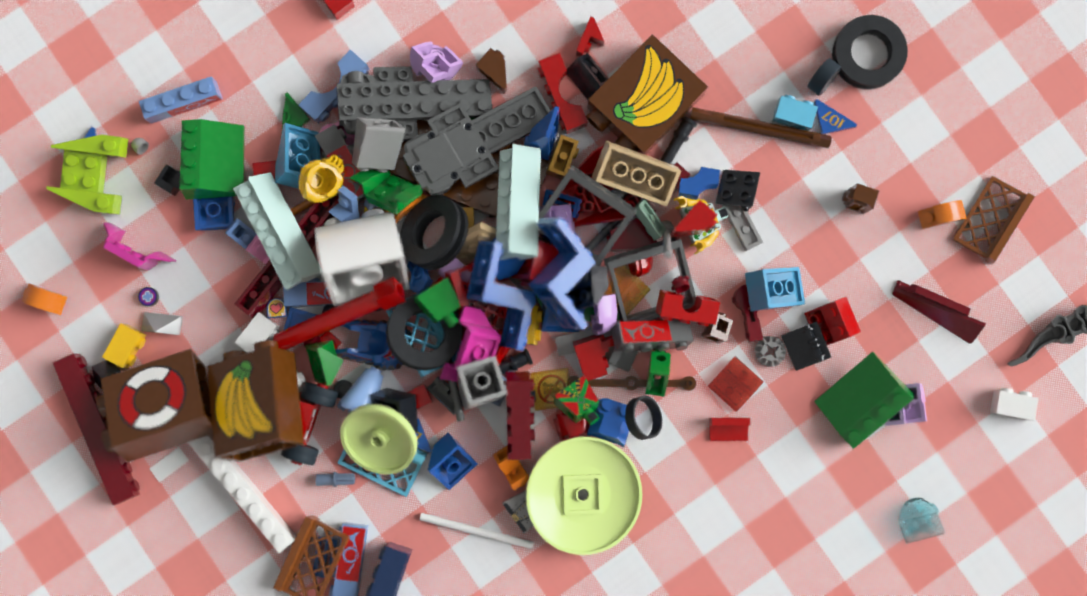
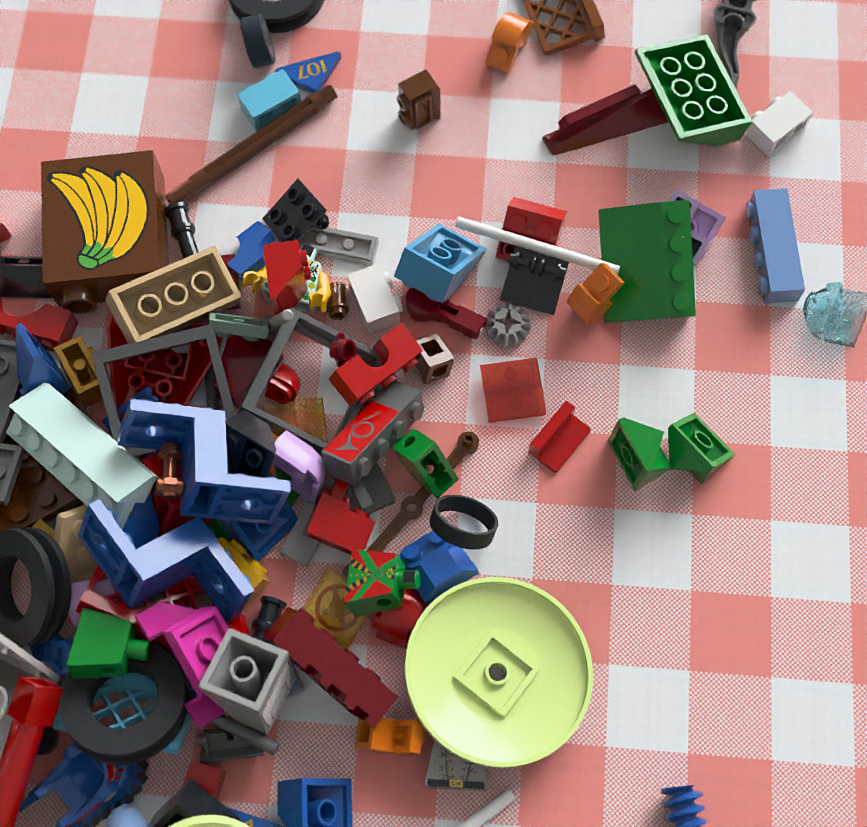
camera: 45 degrees left, 15 degrees down
(537, 267) = (169, 485): none -> copper bar
(706, 255) = (337, 302): none -> reddish brown pin
(726, 270) = (374, 299): none -> white brick
(752, 477) = (638, 451): none -> green slope
(781, 503) = (696, 448): none -> green slope
(822, 387) = (594, 295): none -> orange brick
(825, 334) = (531, 244): none -> white piece
(934, 458) = (775, 246): none -> medium blue brick
(992, 345) = (695, 91): none -> green slope

